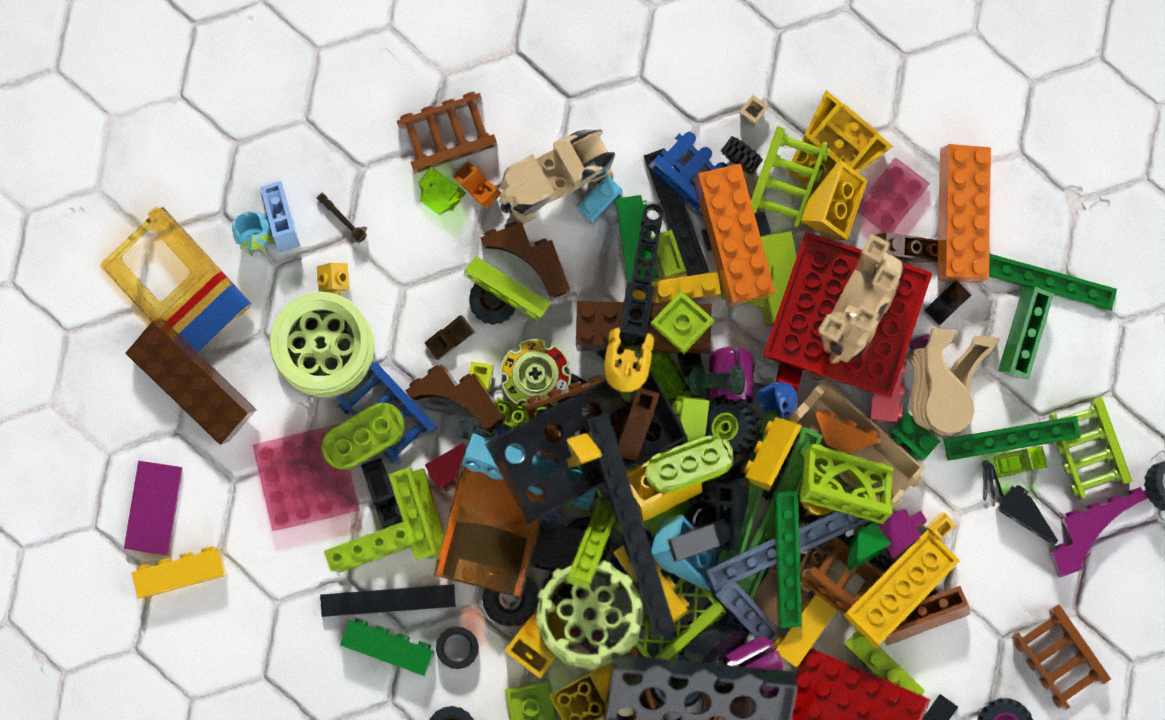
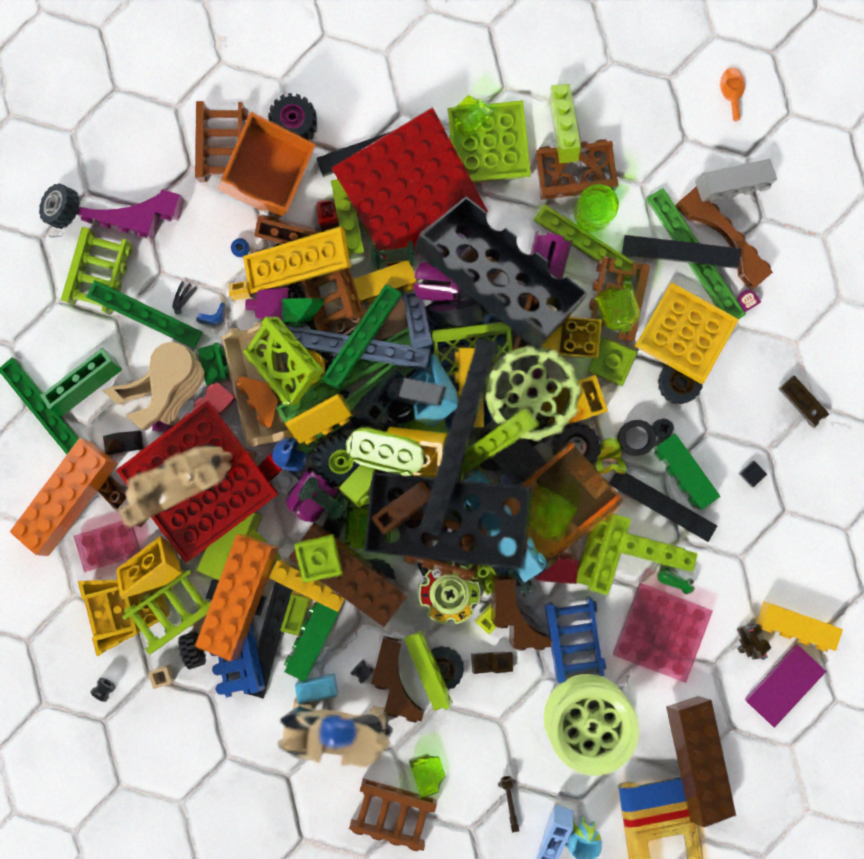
camera: 155 degrees left, 5 degrees up
(215, 524) = (751, 644): none -> dark brown hips
(320, 691) = (752, 473): none -> black plate
(333, 278) = (547, 765): yellow brick -> none
(334, 533) = (669, 578): none -> green piece
(363, 436) = (603, 635): lime tile -> none
(382, 493) = (619, 586): black slope -> none
(443, 672) = (659, 429): none -> black wheel
(474, 619) = (611, 449): none -> lime piece
(477, 185) = (397, 761): orange slope -> none
(493, 515) = (550, 513): none -> clear neon green slope
(556, 181) = (337, 732): none -> blue helmet
(568, 244) = (362, 671): none -> black wheel
(582, 450) = (457, 515): yellow slope -> none
(631, 331) = (360, 578): piece -> none
(799, 61) = (103, 689): none -> black wheel
(814, 659) = (393, 255): none -> clear green hose
(908, 659) = (327, 214): none -> red slope
(944, 478) = (212, 320): none -> blue hair
(962, 570) = (246, 247): none -> blue plate
(993, 657) = (266, 166): none -> orange piece
(1020, 461) = (152, 295): clear neon green slope -> none
(1024, 511) = (173, 258): black slope -> none

